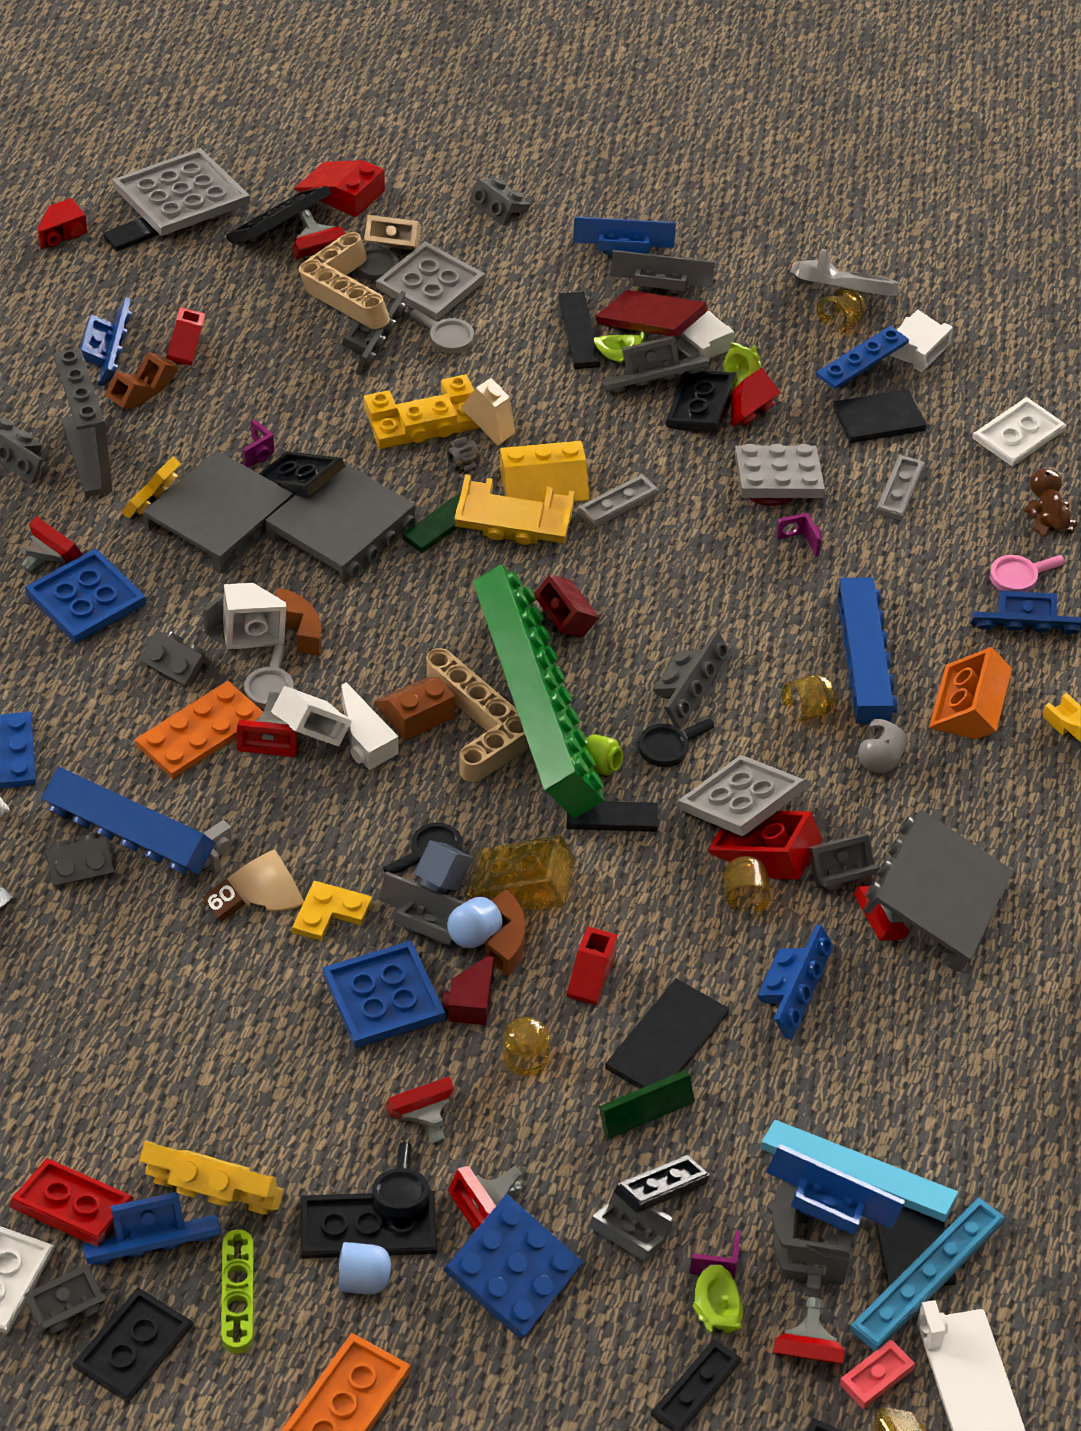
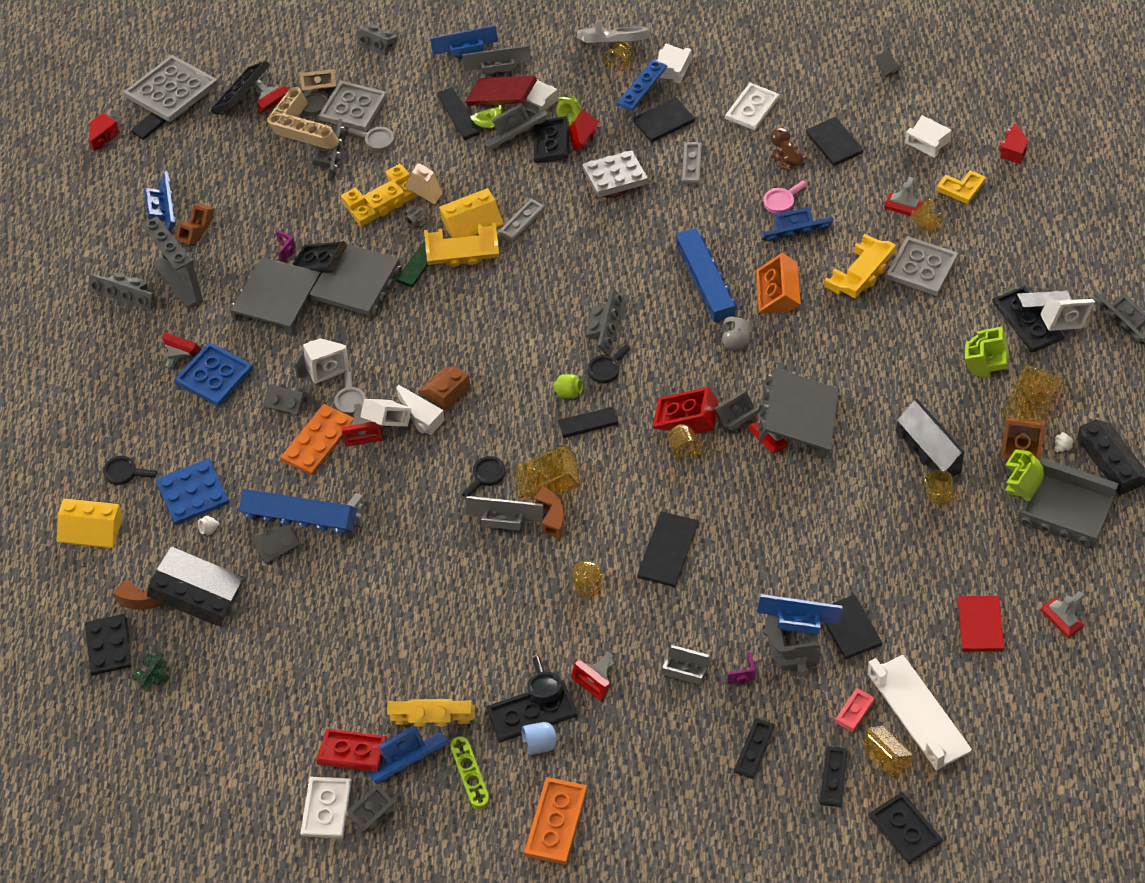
camera: 10 degrees left, 5 degrees up
(132, 1345) = (420, 822): black tile -> none
(155, 487) = (230, 292): yellow plate -> none
(185, 336) = (212, 186): red slope -> none
(223, 900) = (373, 542): reddish brown tile -> none
(267, 883) = (394, 524): tan brick -> none
(304, 618) = (357, 351): dark orange brick -> none
(329, 902) = (435, 525): yellow plate -> none
(351, 184) = (278, 51): red slope -> none
(383, 994) = (490, 571): blue plate -> none
(423, 1106) = (539, 632): red piece -> none
(442, 867) = (500, 483): sand blue brick -> none
(470, 994) = (543, 556): dark red slope -> none
(474, 922) = (531, 512): light blue helmet -> none
(500, 719) = (505, 384): tan beam -> none
(513, 1266) = (626, 710): blue plate -> none
(539, 692) = (519, 357): green brick -> none
(566, 606) = (515, 297): dark red brick -> none
(592, 965) = (609, 518): red slope -> none
(646, 1104) = (670, 592): dark green tile -> none
(662, 1183) = (695, 636): black tile -> none
(718, 1300) = (750, 695): lime hat -> none
(742, 795) = (662, 387): light grey plate -> none
(794, 978) = (730, 491): blue bracket -> none
(804, 526) = (643, 205): magenta bracket -> none
(810, 1338) = (810, 701): red piece -> none
(815, 693) = (685, 311): clear yellow helmet -> none
(917, 1192) = (846, 598): medium azure tile -> none
(927, 1274) = (865, 644): dark azure tile -> none

